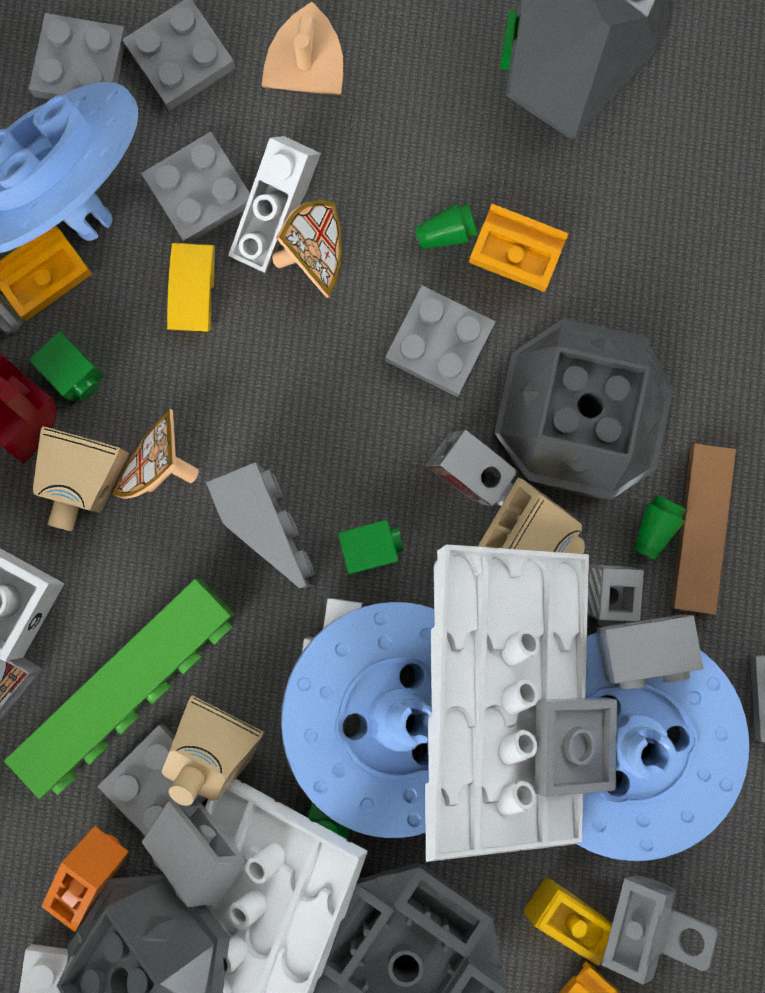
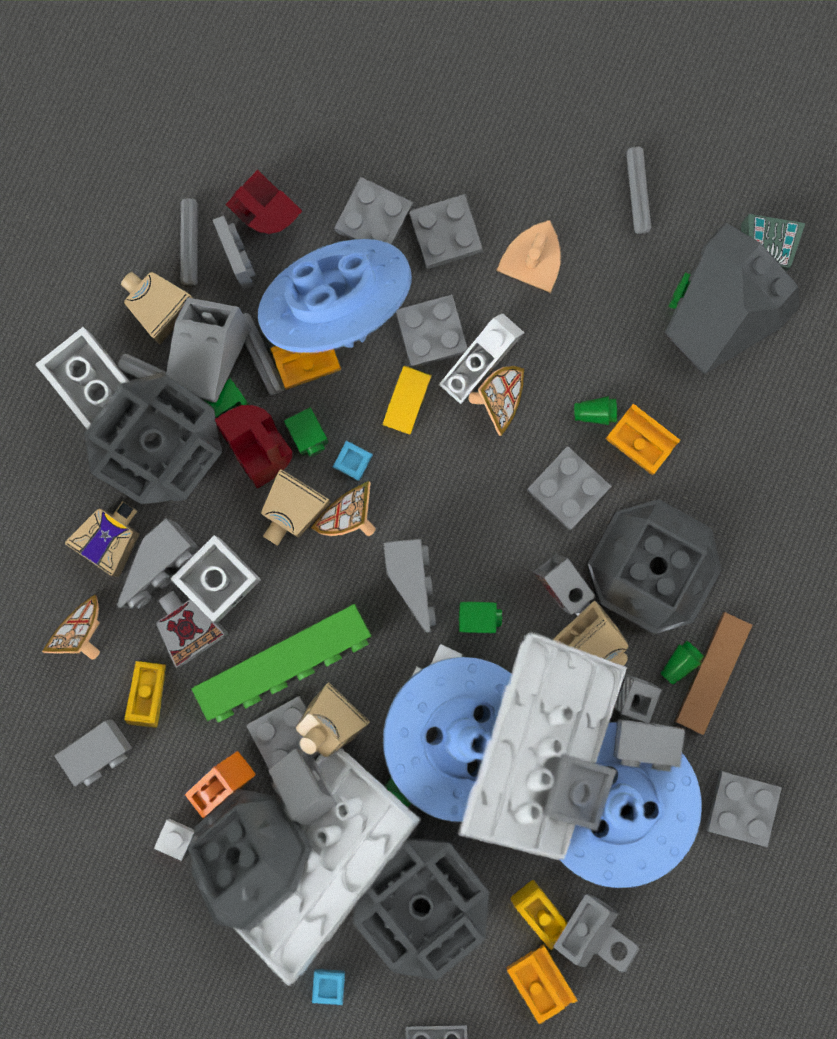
camera: 20 degrees right, 0 degrees up
(142, 389) = (352, 460): none -> medium azure tile

